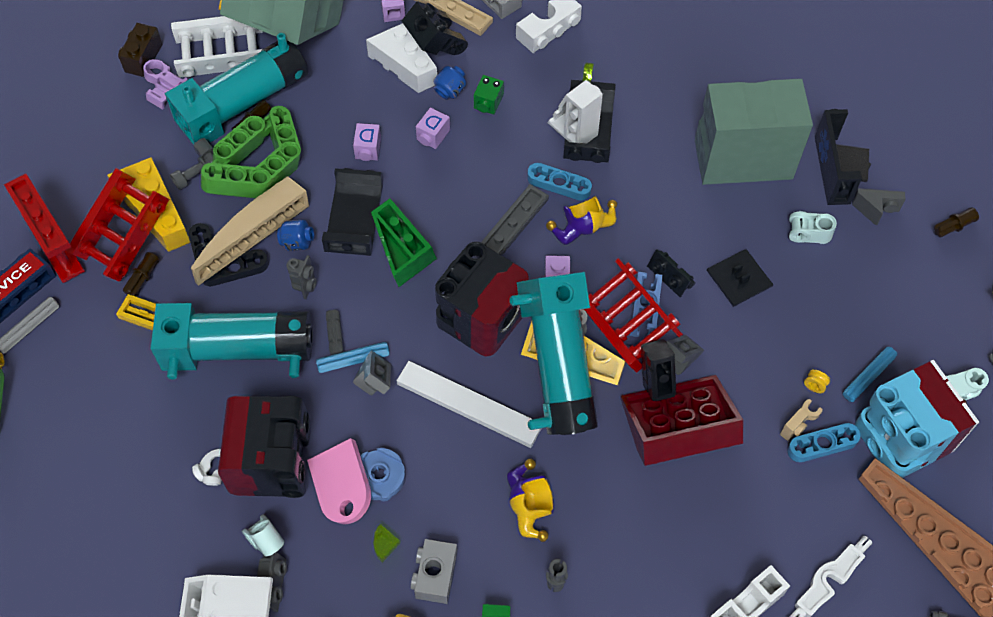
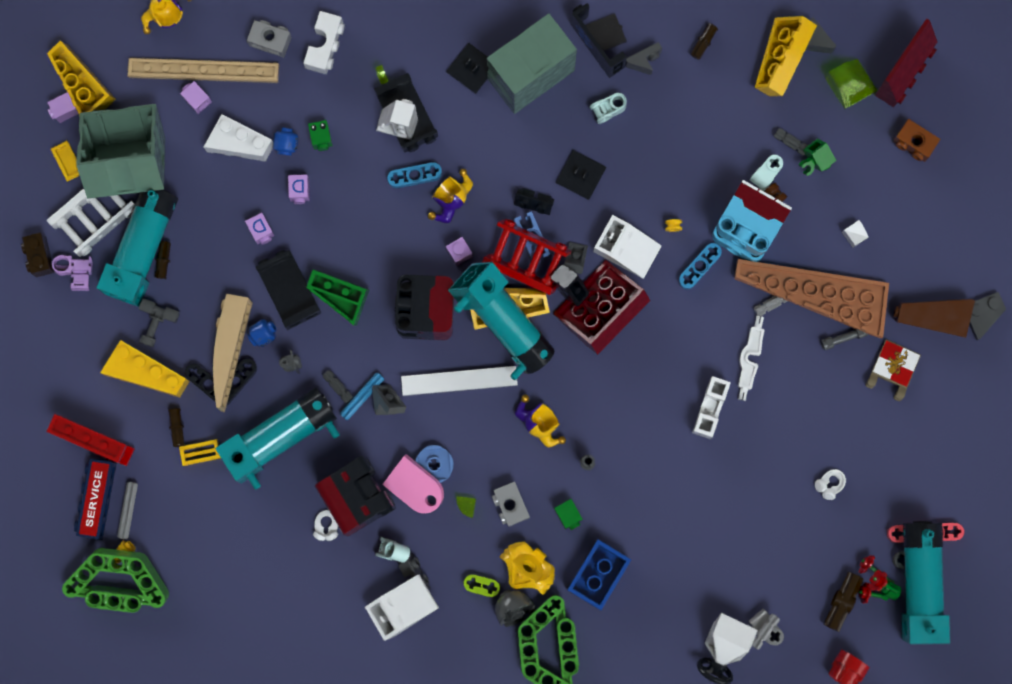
camera: 30 degrees left, 20 degrees up
(102, 212) = (122, 414): red fence -> none
(229, 179) = (171, 280): bright green piece -> none
(432, 31) = (245, 111): black brick -> none
(515, 219) = (403, 229): dark grey tile -> none
(681, 120) = (470, 68): none -> black piece
(748, 371) = (627, 247): none -> white slope
(796, 424) = (677, 265): tan plate -> none
(875, 368) = (704, 197): dark azure axle -> none
(886, 533) = (768, 305): none -> light grey axle

